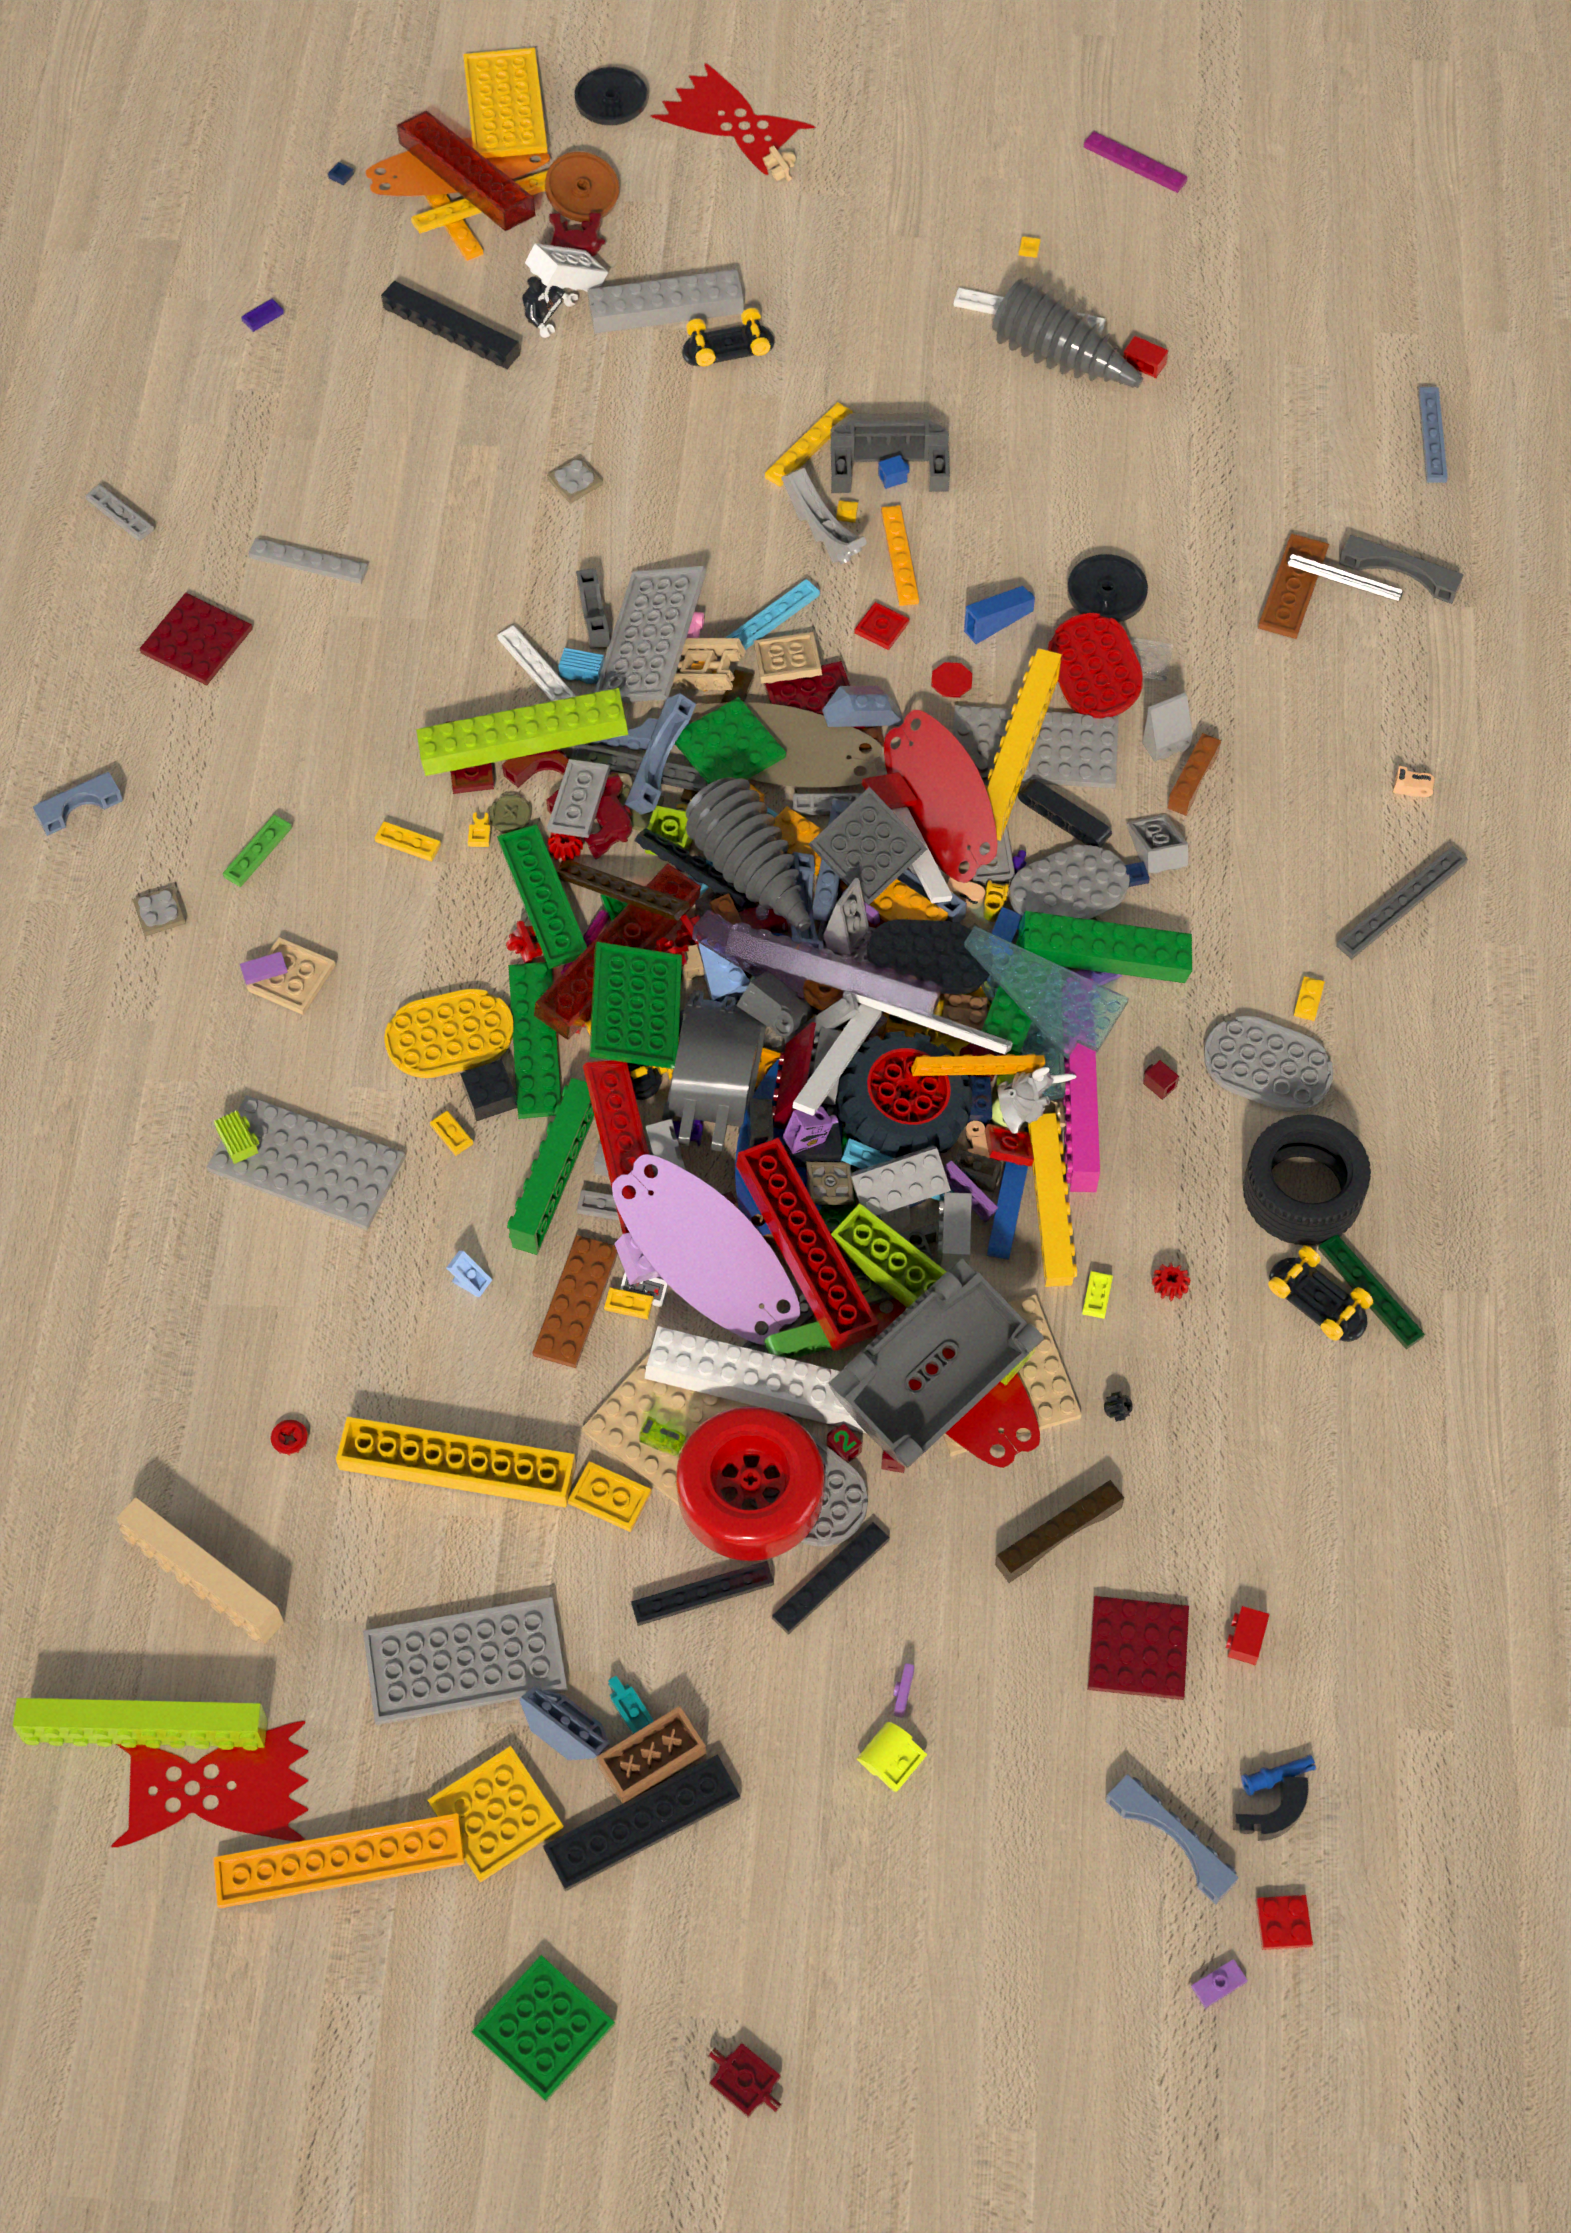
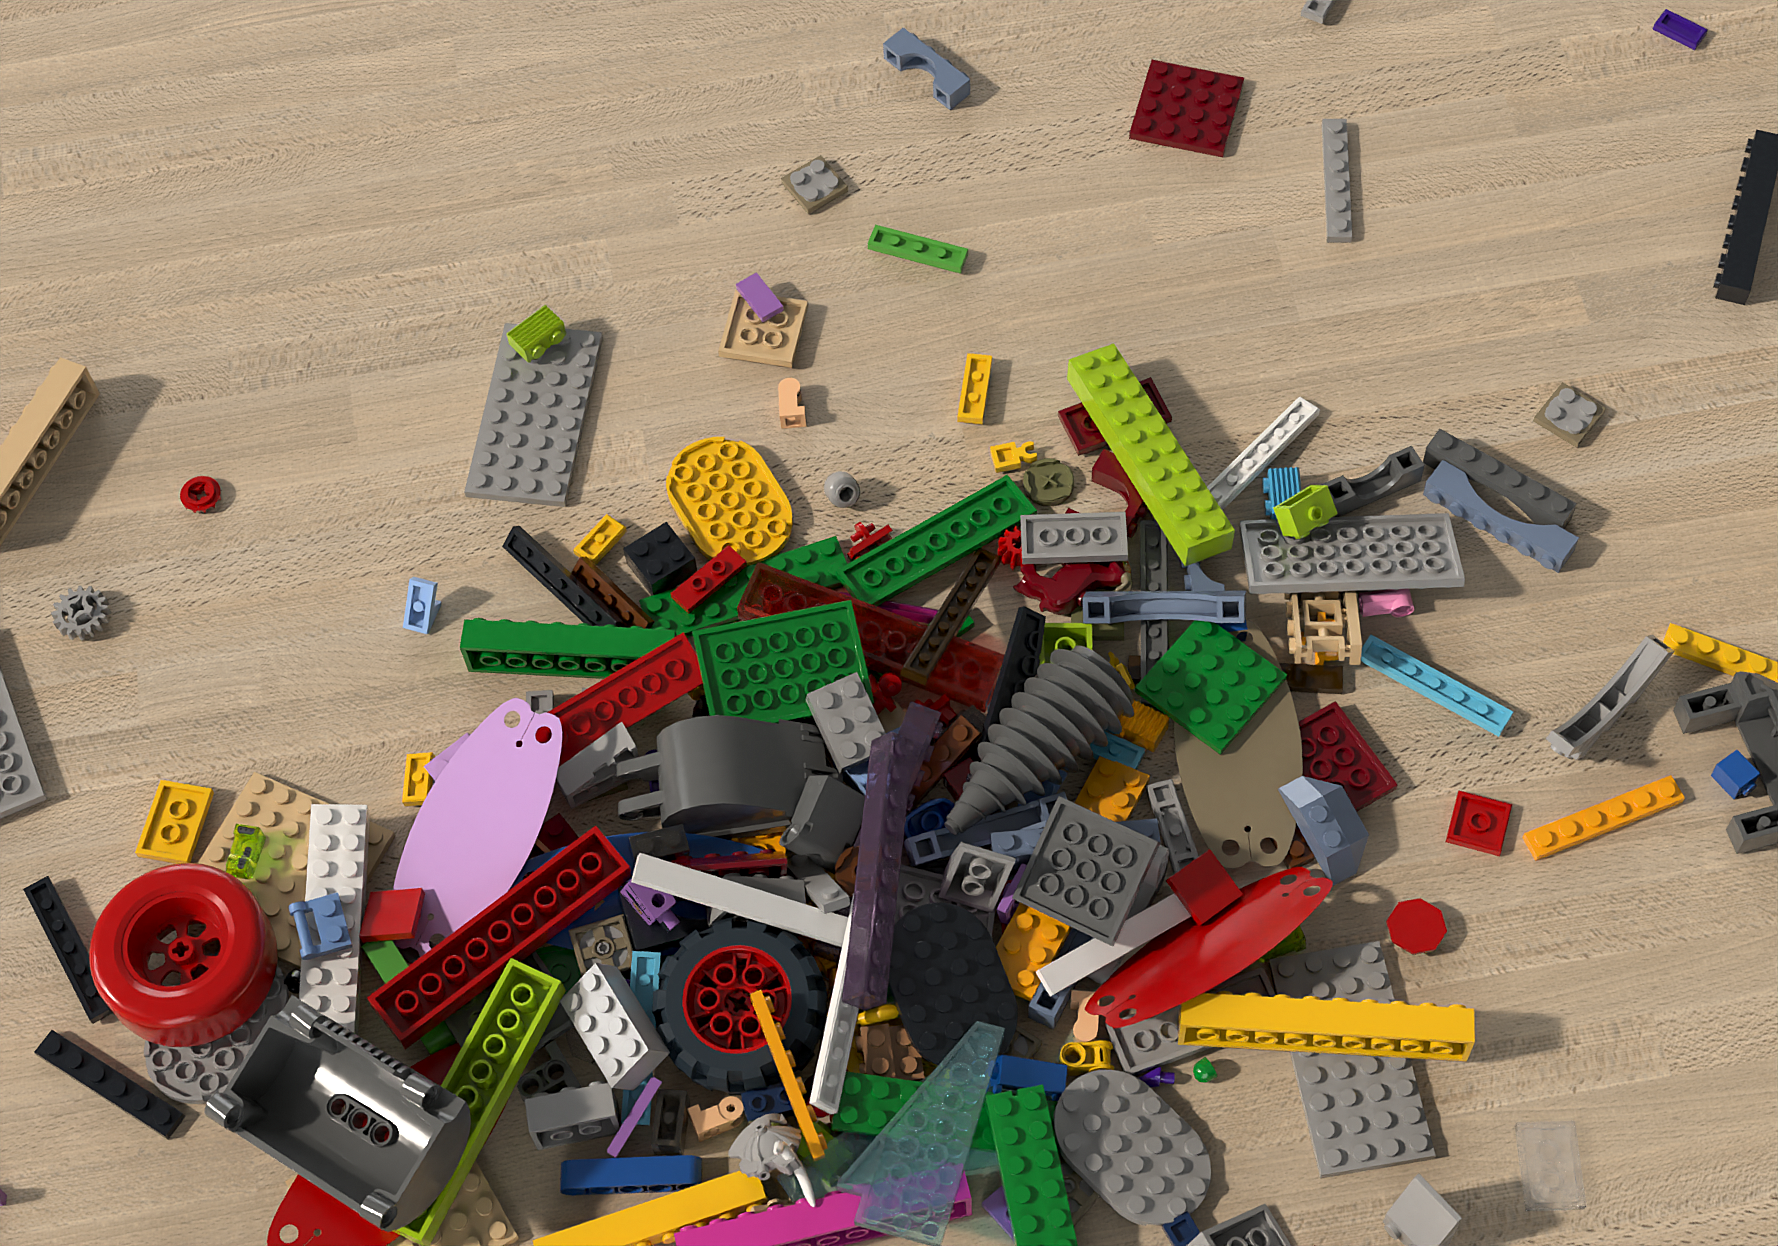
camera: 80 degrees right, 0 degrees up
(372, 971) = (789, 397): none -> light nougat leg
(380, 1558) = (81, 612): none -> light grey gear
(456, 1461) = (187, 658): yellow brick -> none
(470, 949) = (842, 489): none -> light grey head
(481, 1167) = (558, 579): none -> black plate
(510, 1133) = (610, 594): none -> reddish brown plate
(521, 1057) = (708, 579): none -> red plate
(575, 1301) = (405, 723): dark orange plate -> none
(608, 648) = (1305, 511): none -> lime brick
(615, 563) = (1544, 543): none -> sand blue arch
(646, 514) = (1534, 499): none -> dark grey arch
(697, 971) = (845, 720): none -> light grey brick
(756, 1327) = (392, 915): none -> red tile
(757, 1367) = (330, 925): none -> medium blue plate
(787, 657) = (1376, 719): tan plate -> none
(847, 511) = (1650, 736): yellow plate -> none
(997, 612) = (1547, 958): blue slope -> none
(1009, 1147) = (706, 1149): red plate -> none
(1022, 831) = (1204, 1071): none -> green hinge
(1064, 814) = (1248, 1118): black beam -> none
(1097, 665) = (1504, 1104): red plate -> none
(1107, 587) = (1643, 1093): black dish -> none

